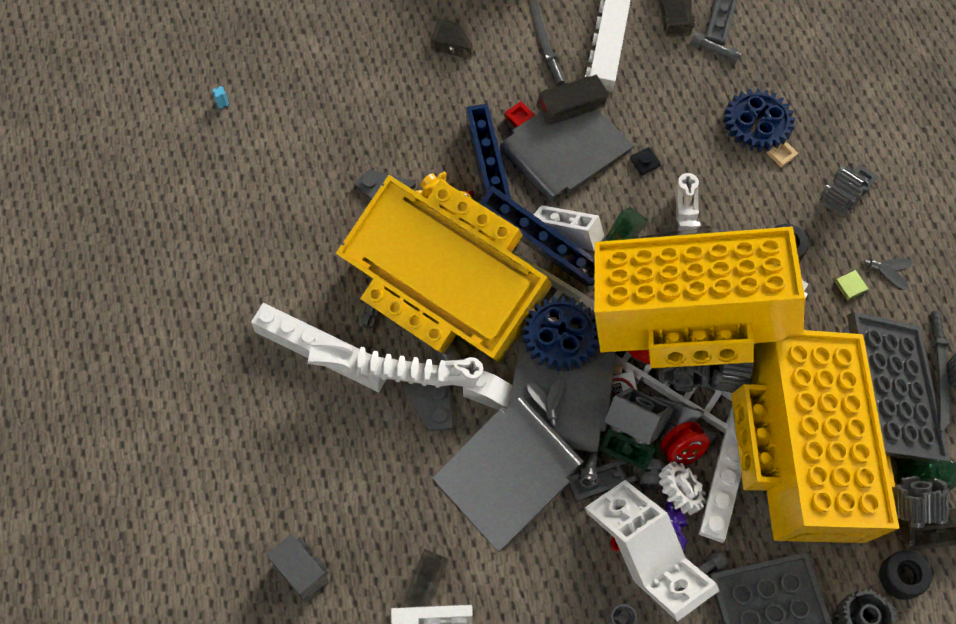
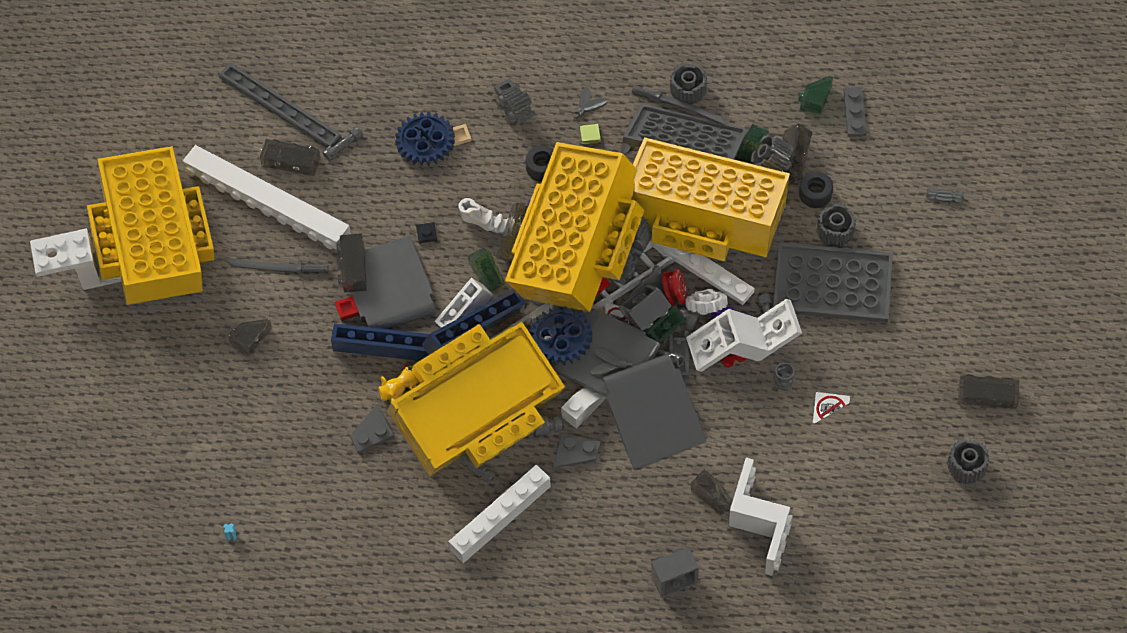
camera: 65 degrees left, 5 degrees down
(341, 357) = (537, 471): white piece -> none

